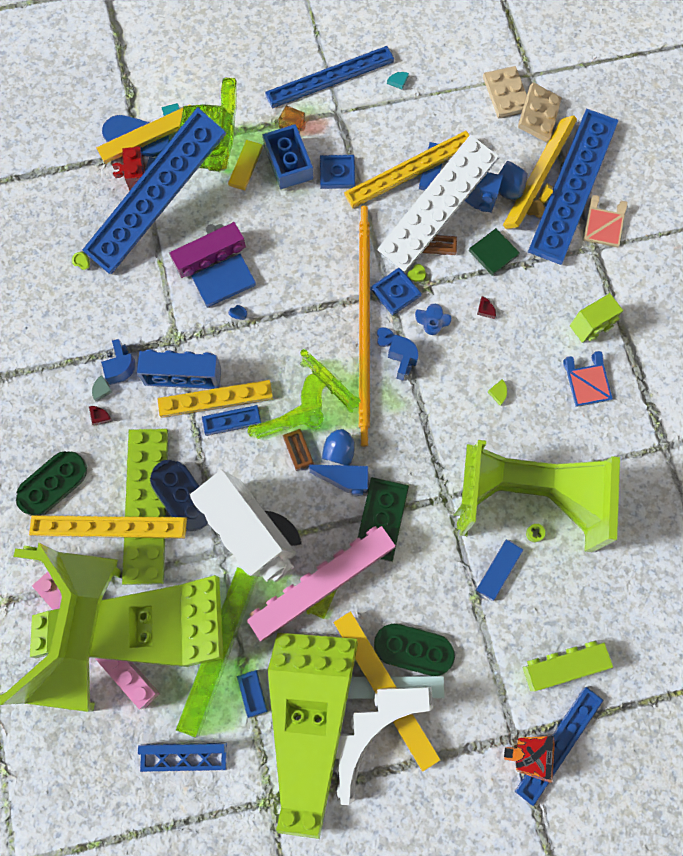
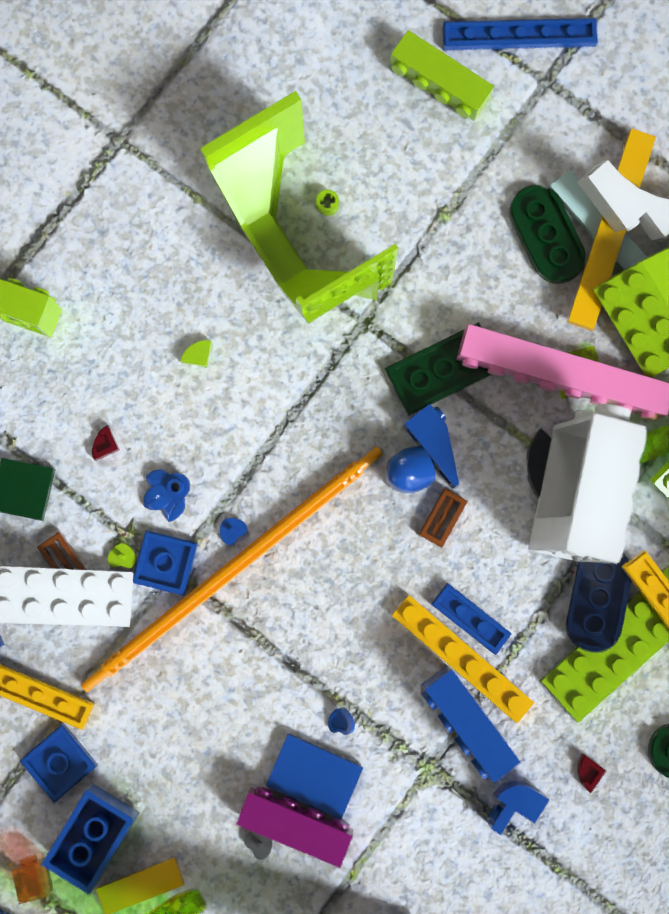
camera: 125 degrees left, 10 degrees up
(100, 389) = (559, 799): sand green tile -> none
(311, 400) = (383, 542): clear neon green piece -> none
(405, 352) = (234, 489): blue brick -> none
(499, 570) = (396, 210): blue tile -> none
(533, 757) = (555, 45): torso -> none
(588, 383) = (108, 266): flag -> none

